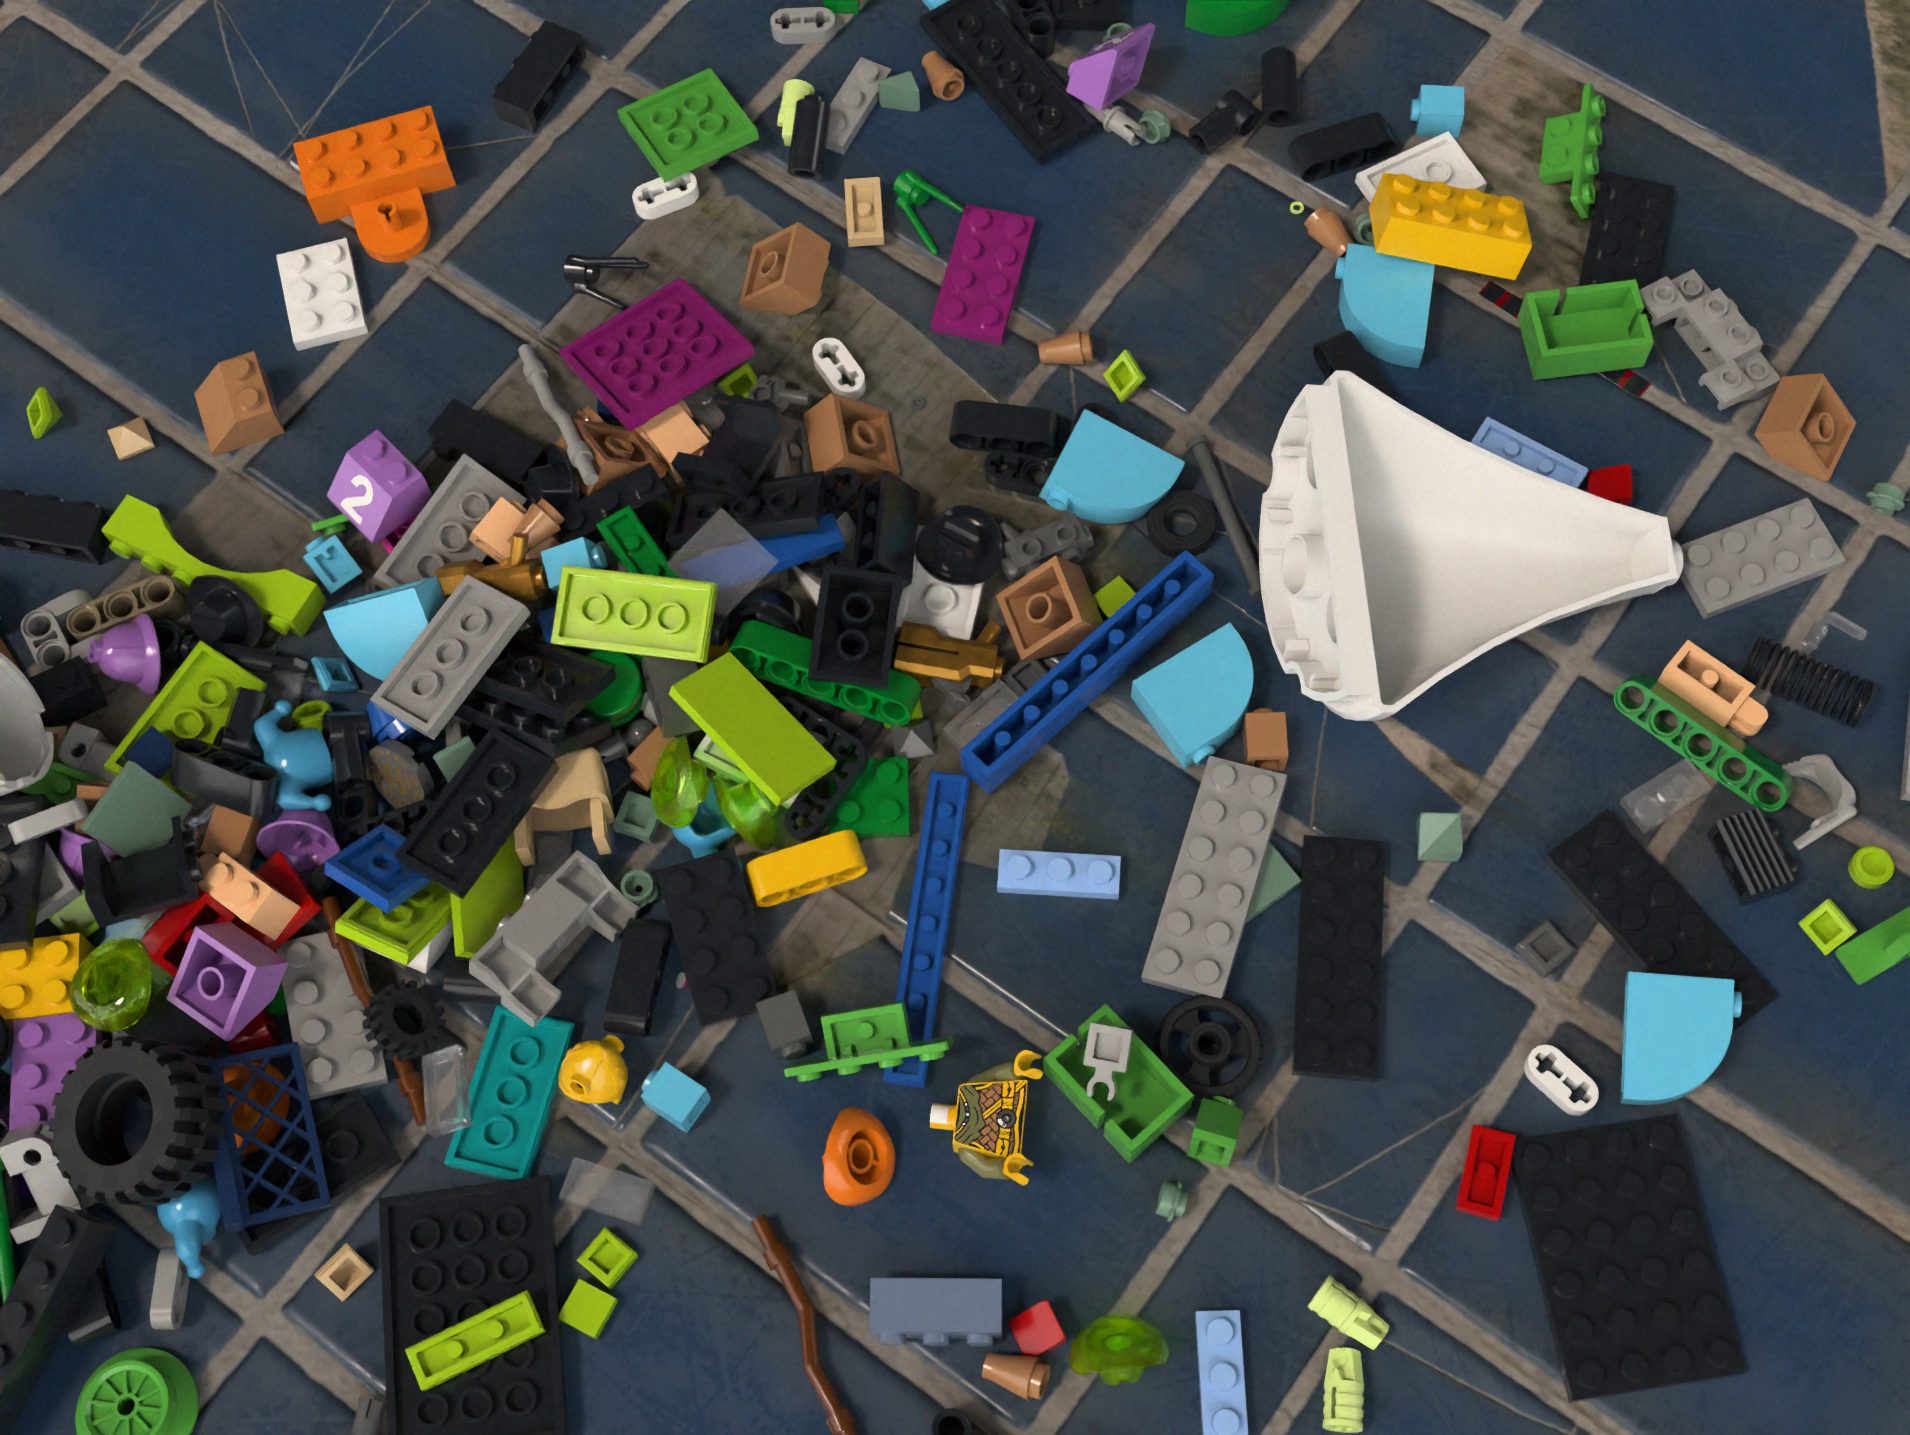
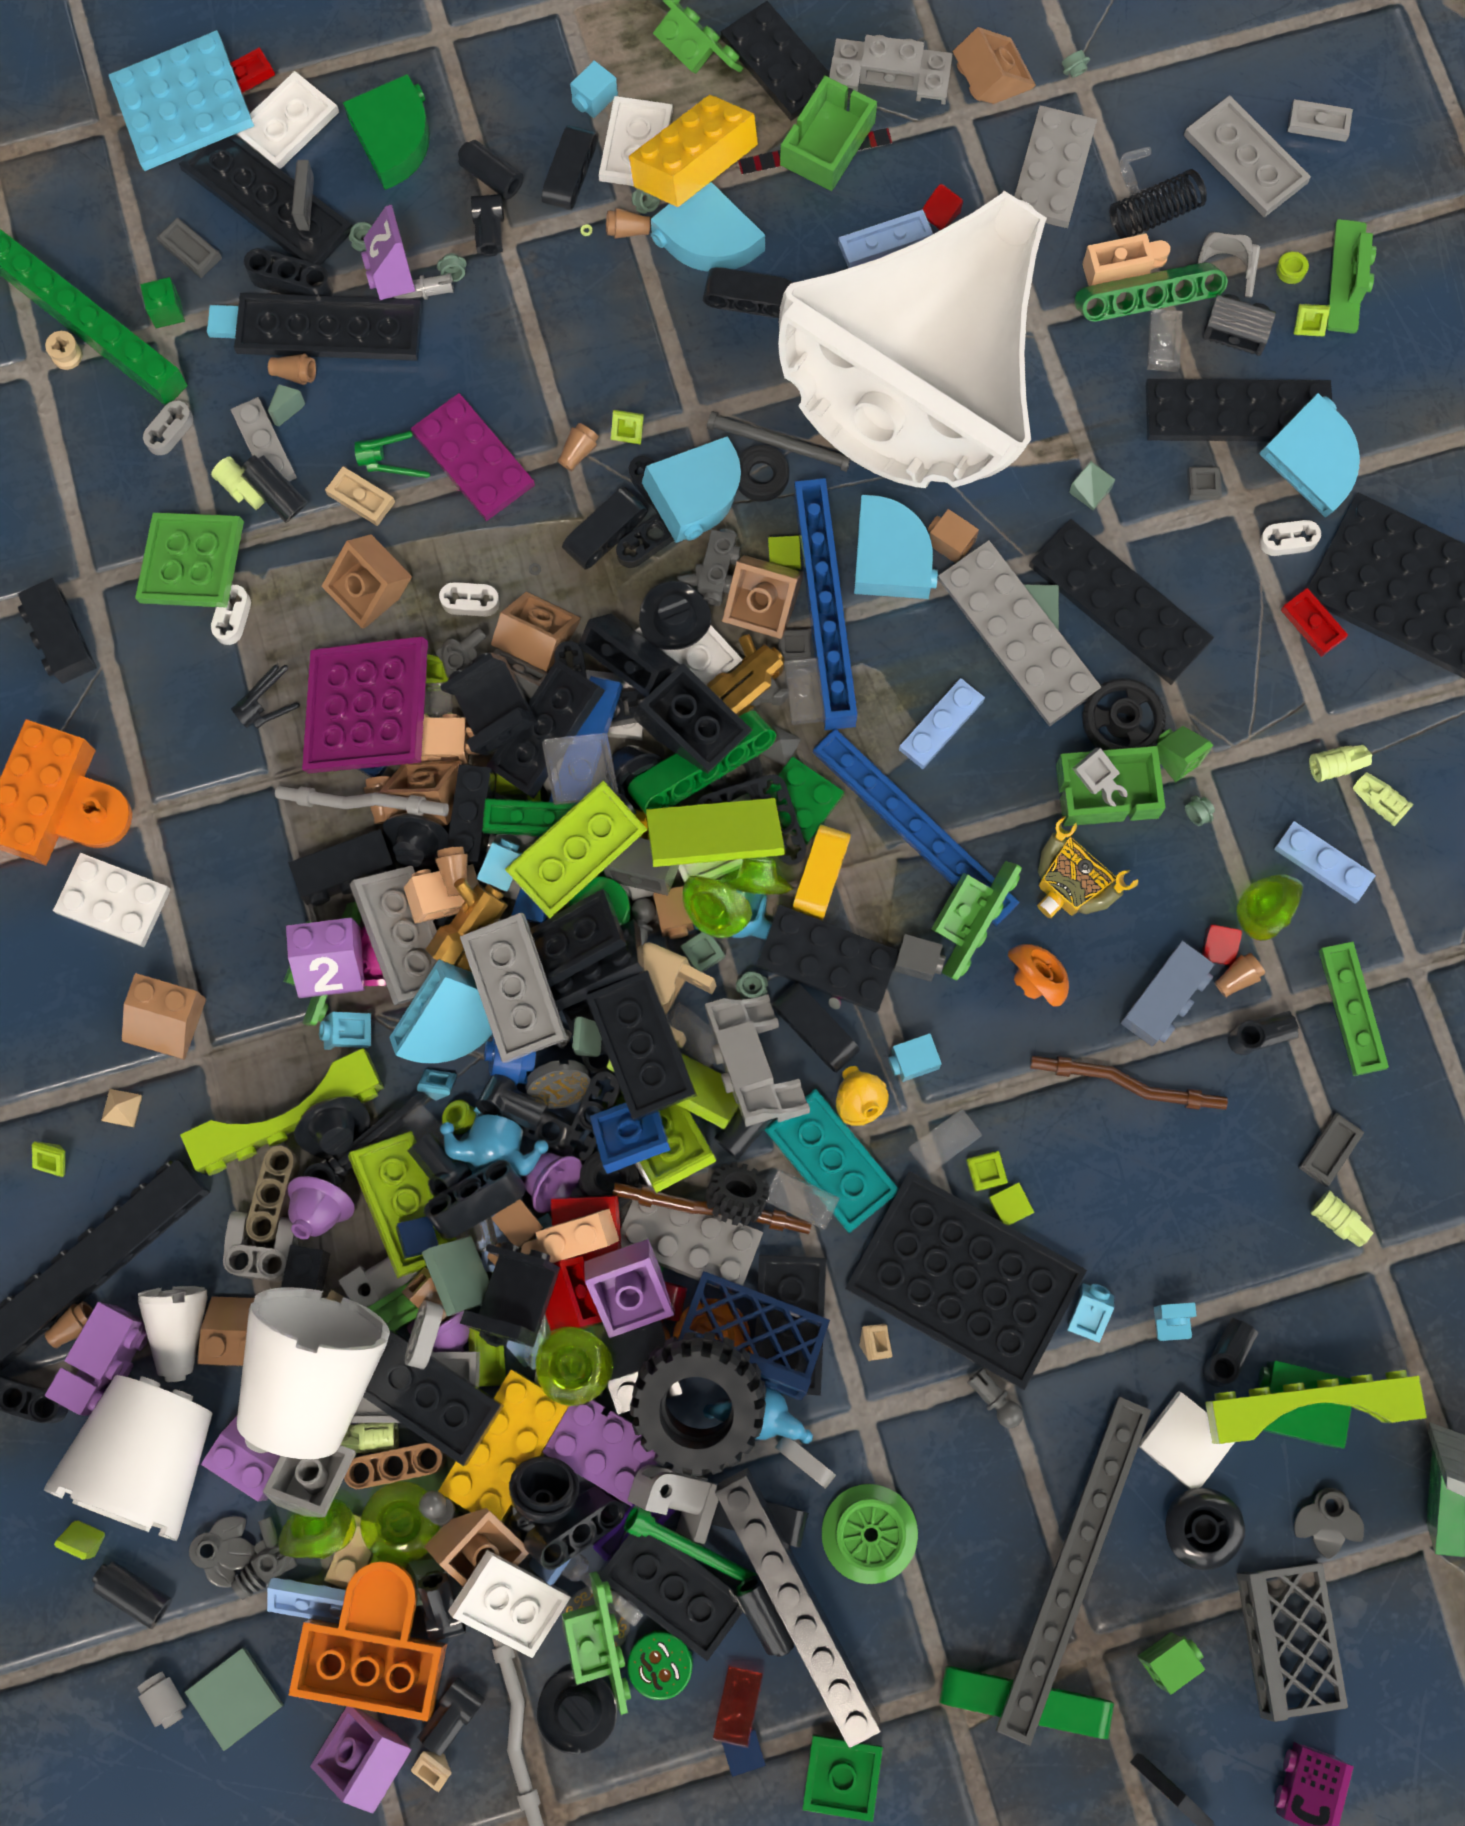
camera: 55 degrees left, 10 degrees up
(475, 1340) = (987, 1285): lime tile -> none

